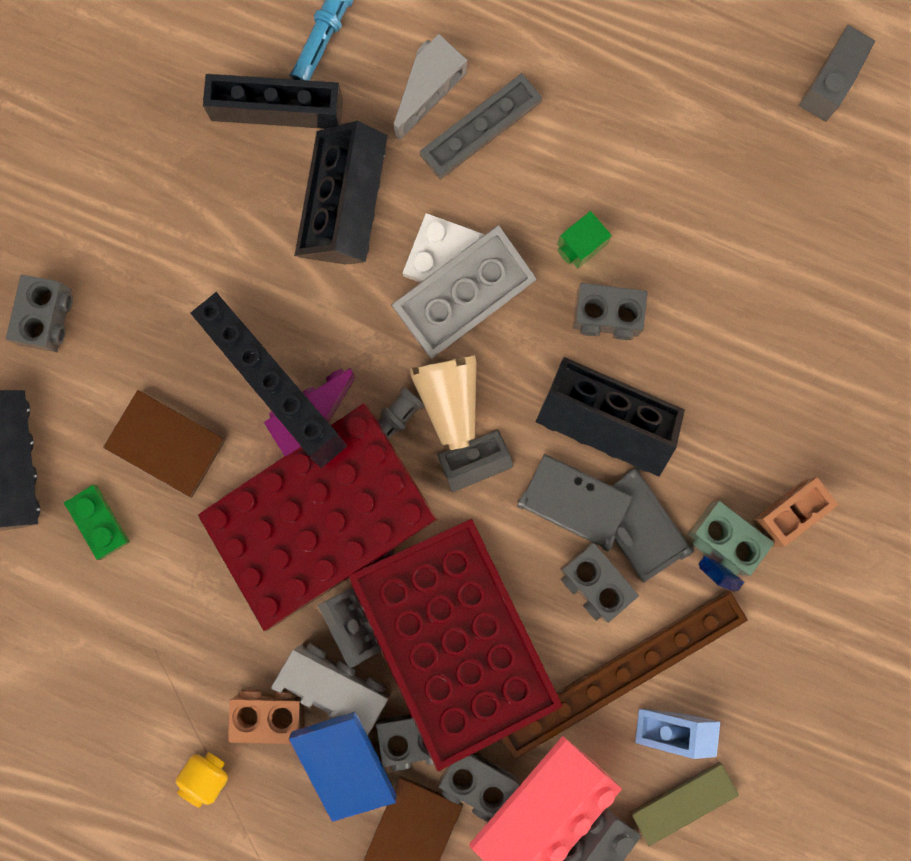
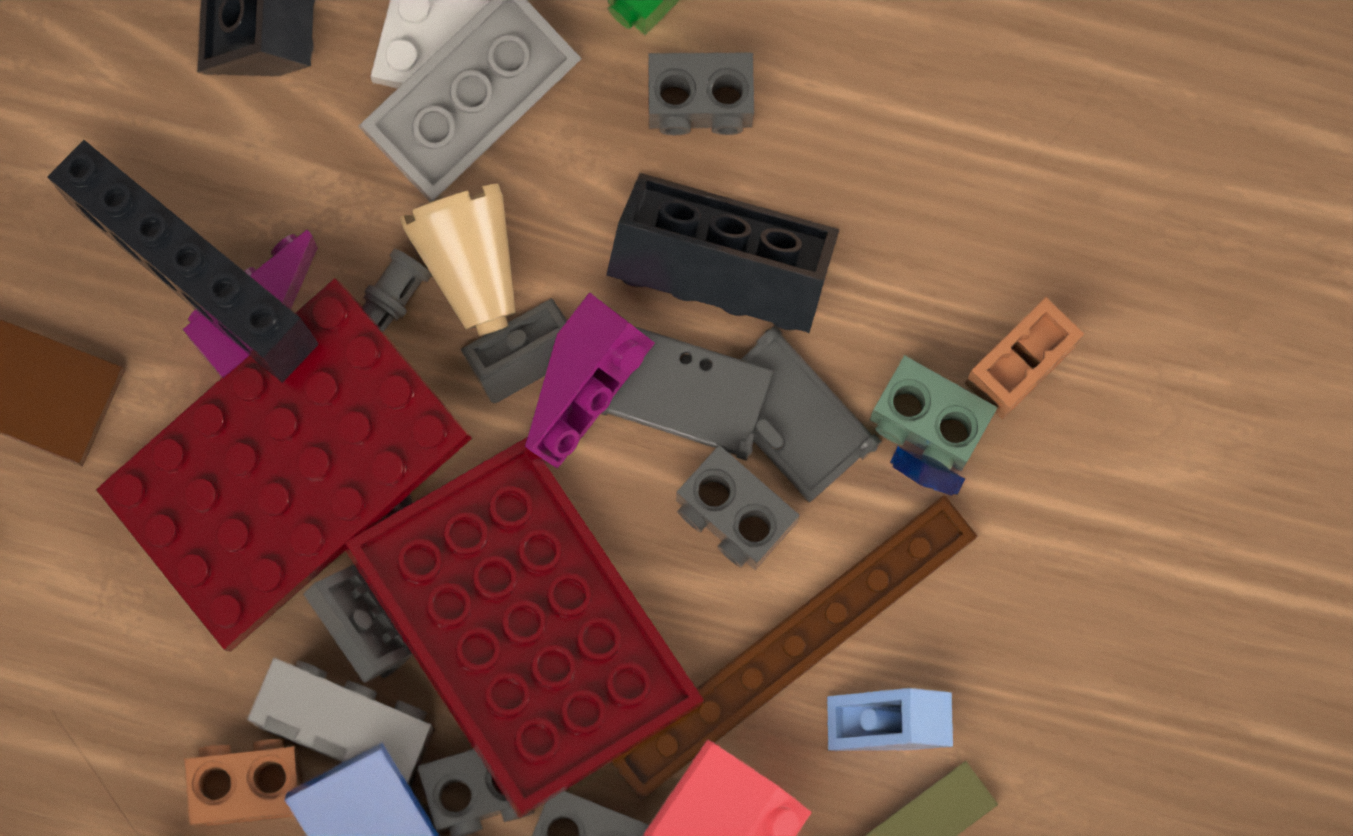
camera: 10 degrees left, 5 degrees down
(514, 482) = (585, 371): none -> magenta slope

